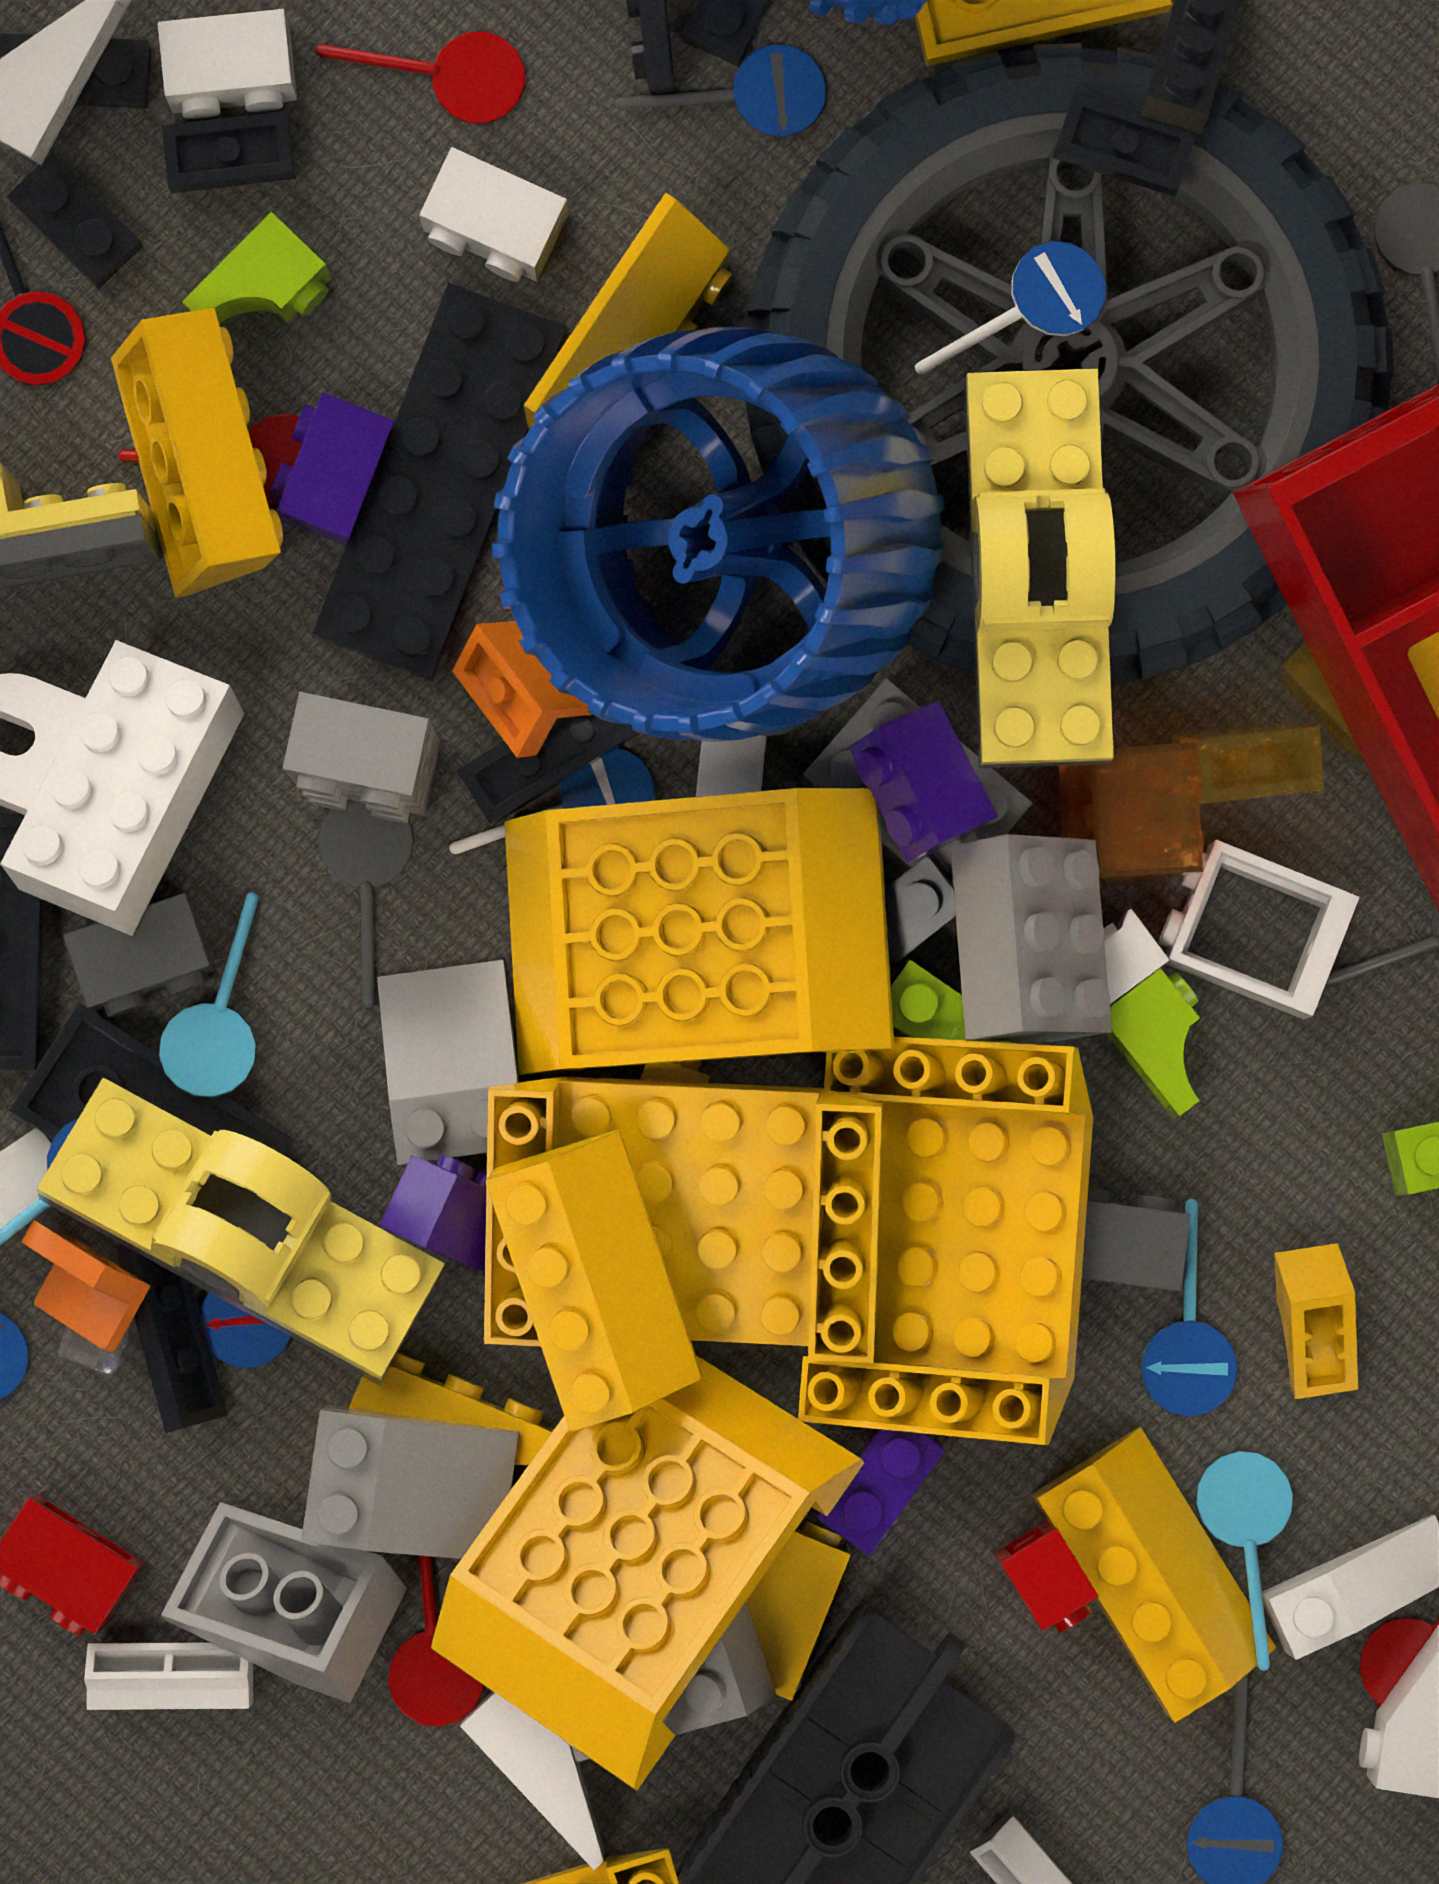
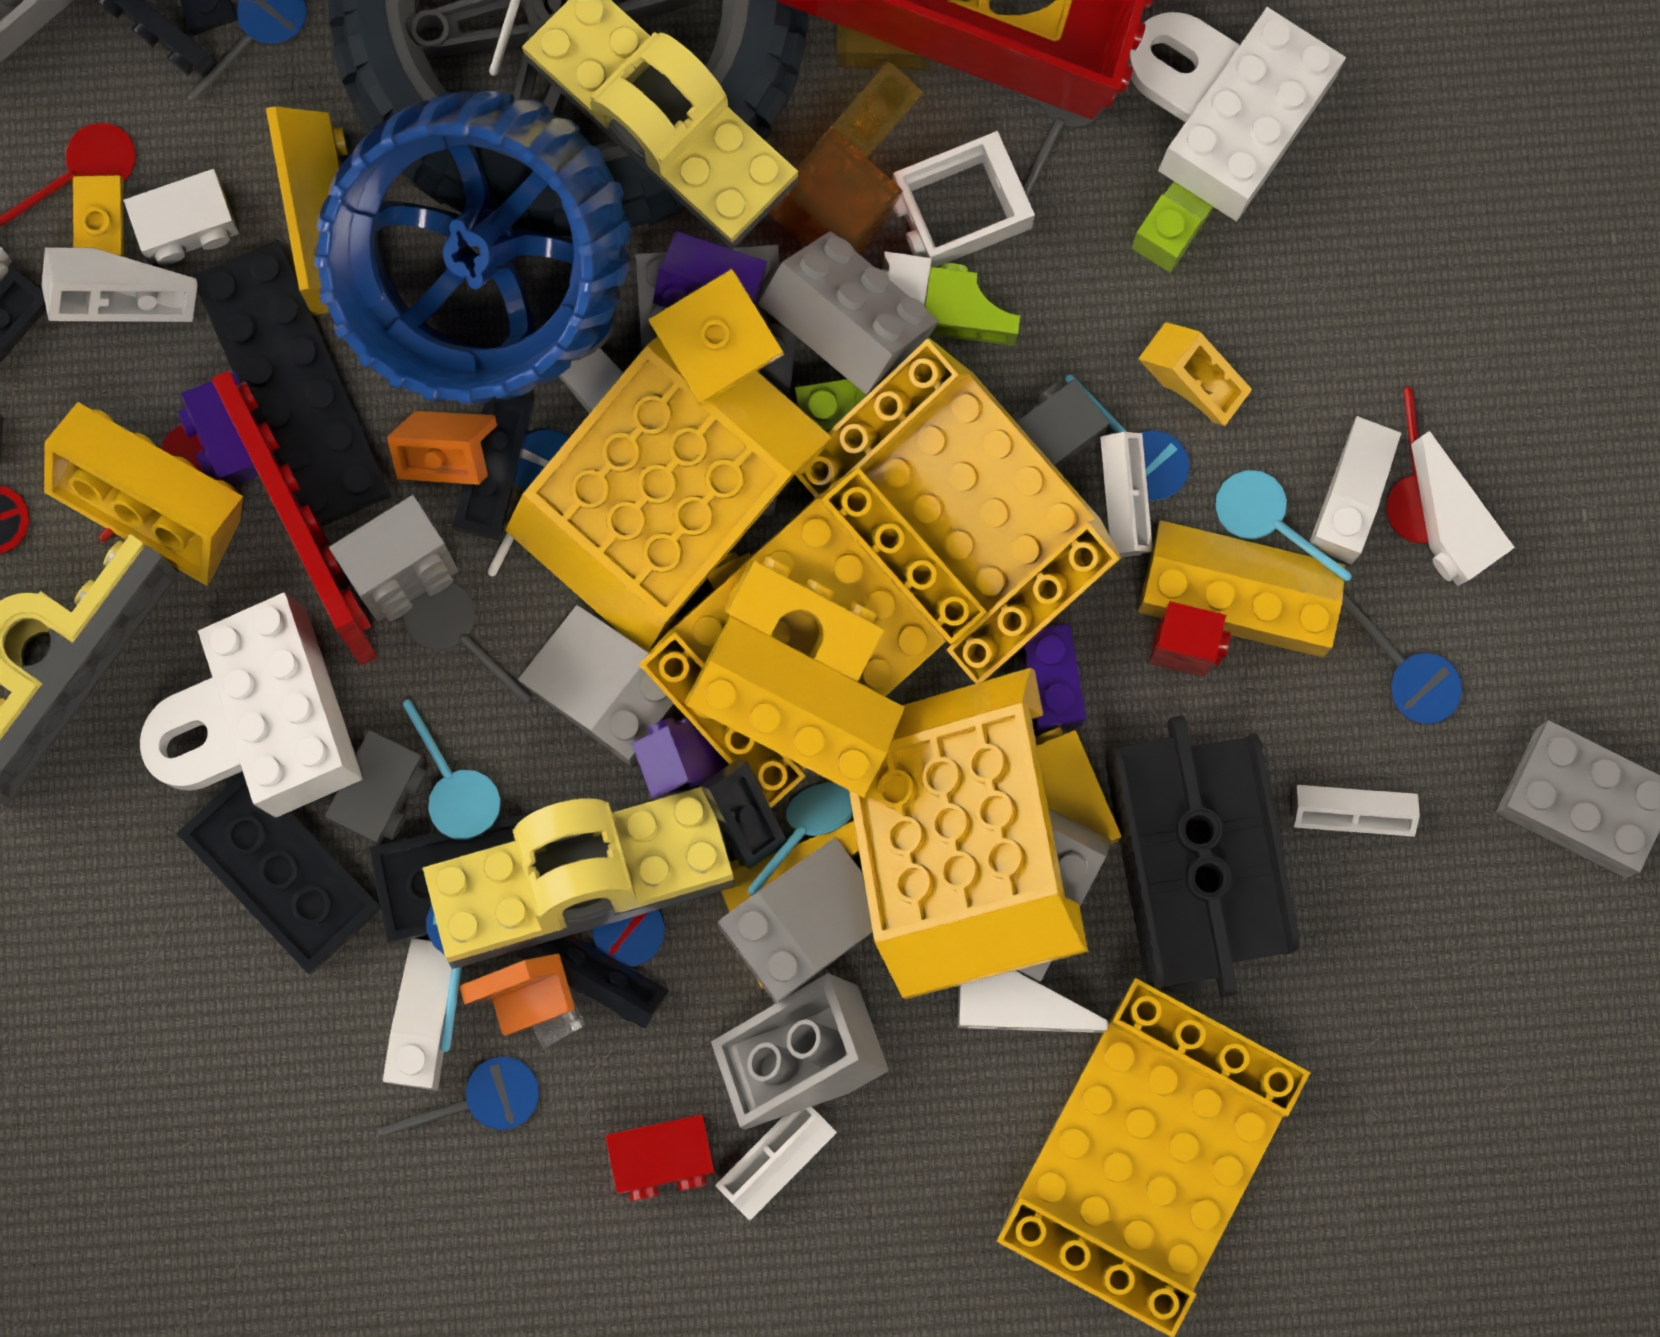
camera: 45 degrees left, 5 degrees down
(265, 274) = (88, 363): lime arch -> none
(301, 641) = (299, 521): none -> red wing
(355, 219) = (109, 287): none -> white slope
(410, 143) = (99, 213): none -> yellow plate
(423, 1681) = (916, 1024): red piece -> none
(452, 1325) = (743, 813): none -> black plate
(518, 1384) = (812, 813): none -> medium azure piece
(678, 1144) = (844, 635): none -> yellow arch
(868, 847) = (716, 337): none -> yellow plate
(1130, 1374) = (1126, 493): none -> white piece

